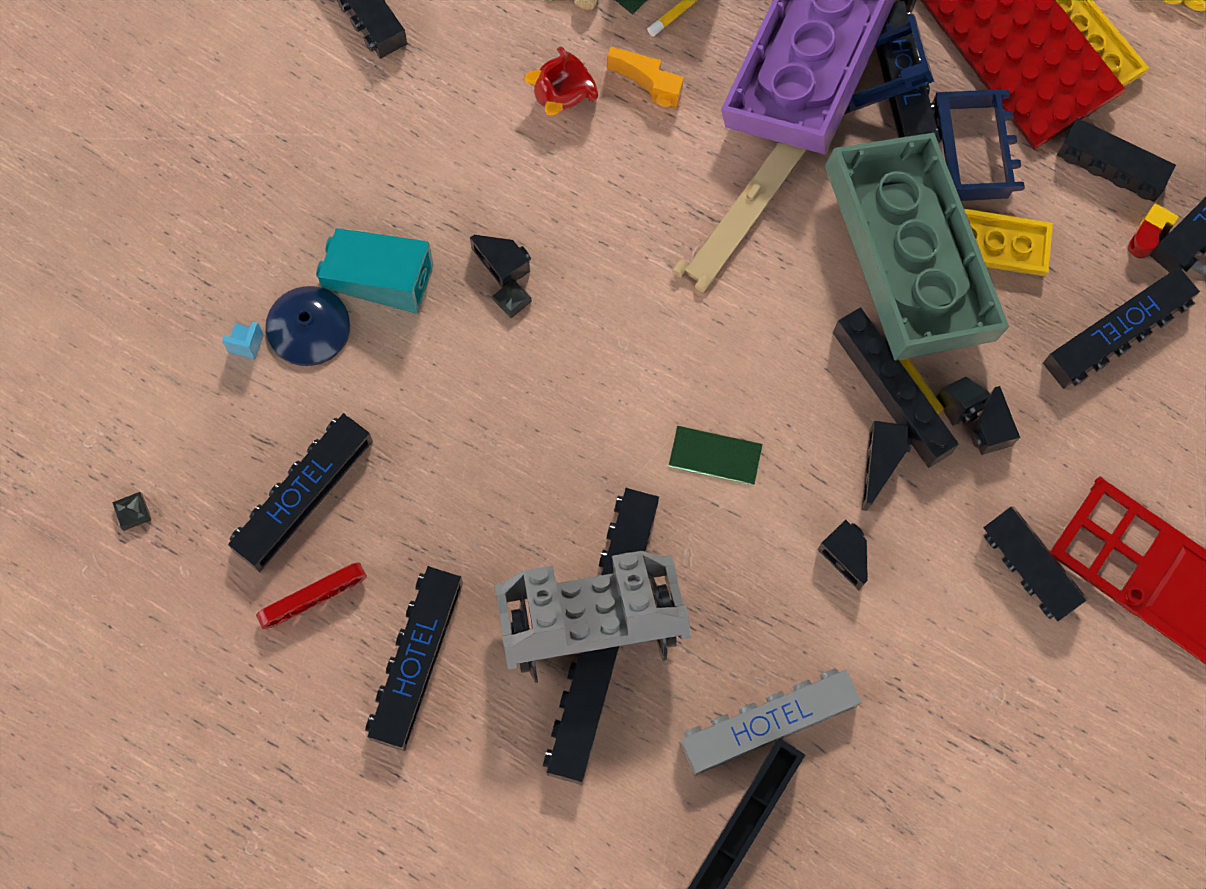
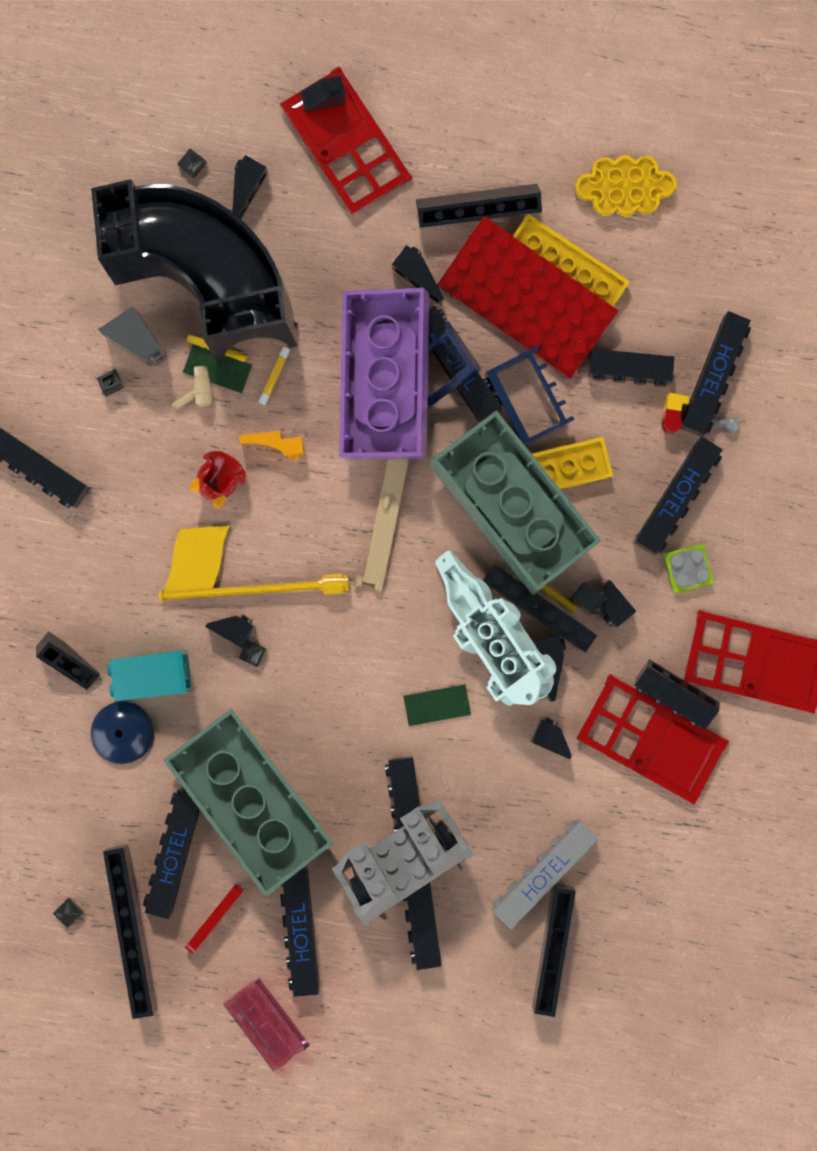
camera: 25 degrees left, 15 degrees up
(197, 564) = (130, 931): none -> black brick
(244, 340) = (84, 763): medium azure panel -> none
(283, 213) = (65, 660): none -> black slope
(313, 763) = (266, 1024): none -> clear pink slope
(427, 461) = (248, 802): none -> sand green plate
(498, 167) = (198, 563): none -> yellow flag
(825, 381) = (495, 633): none -> light aqua animal
(995, 633) = (668, 749): none -> red door
(1104, 420) = (688, 568): none -> light grey piece

